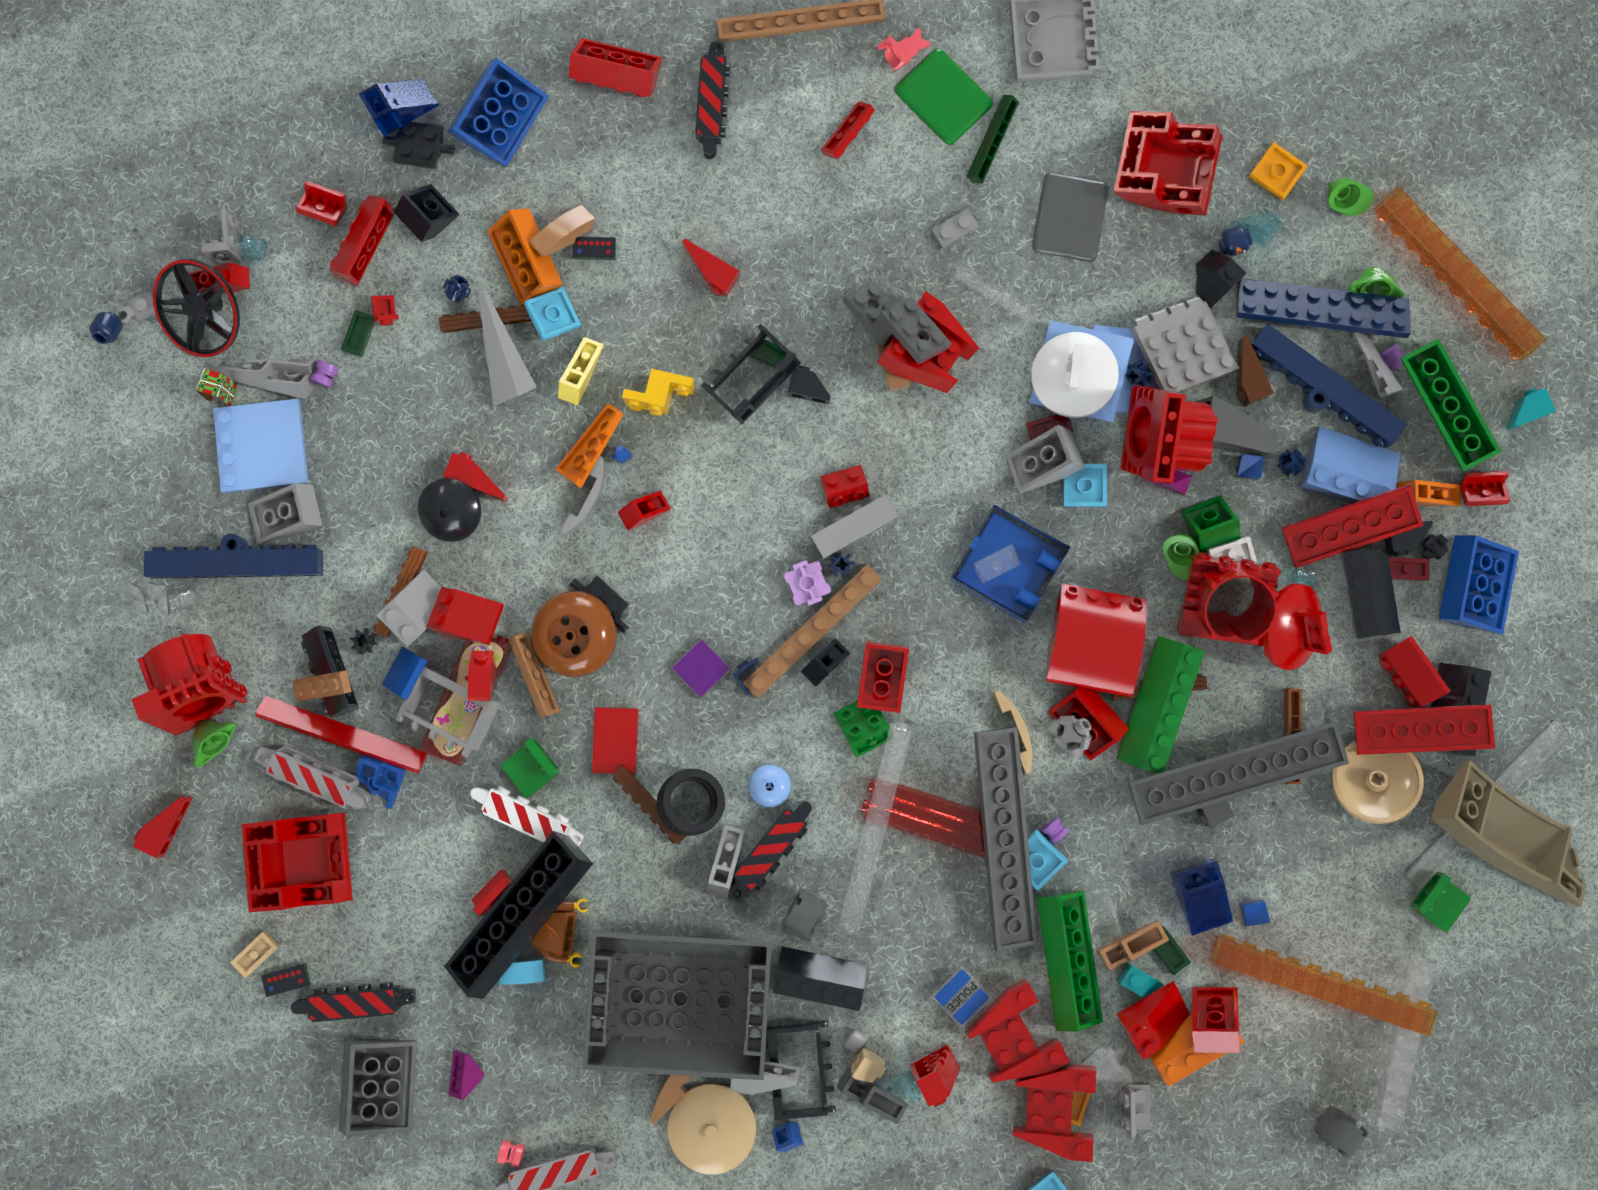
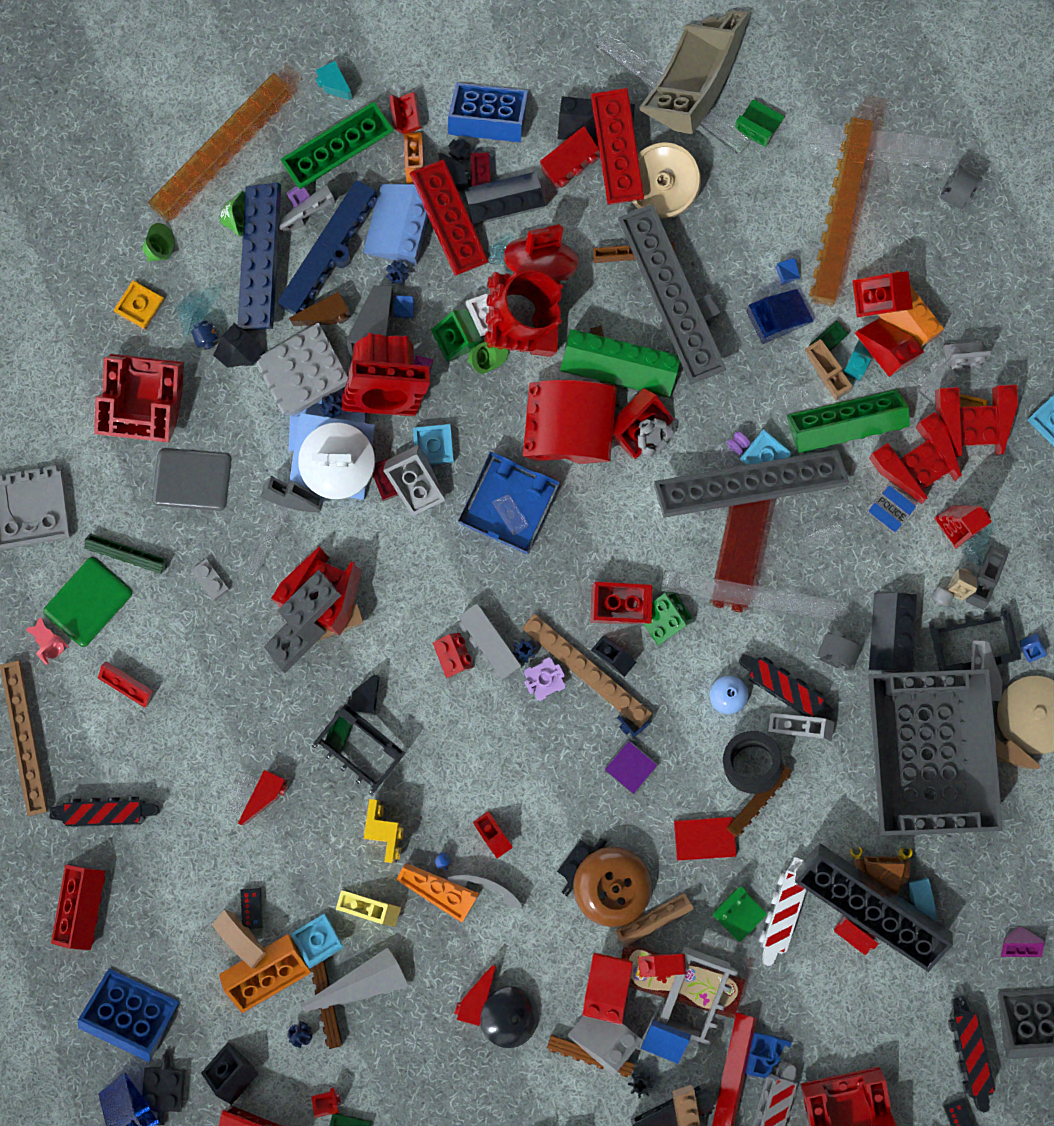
camera: 85 degrees left, 5 degrees down
(1004, 705) = (634, 495): tan slope -> none
(1040, 322) = (291, 495): none -> dark grey slope

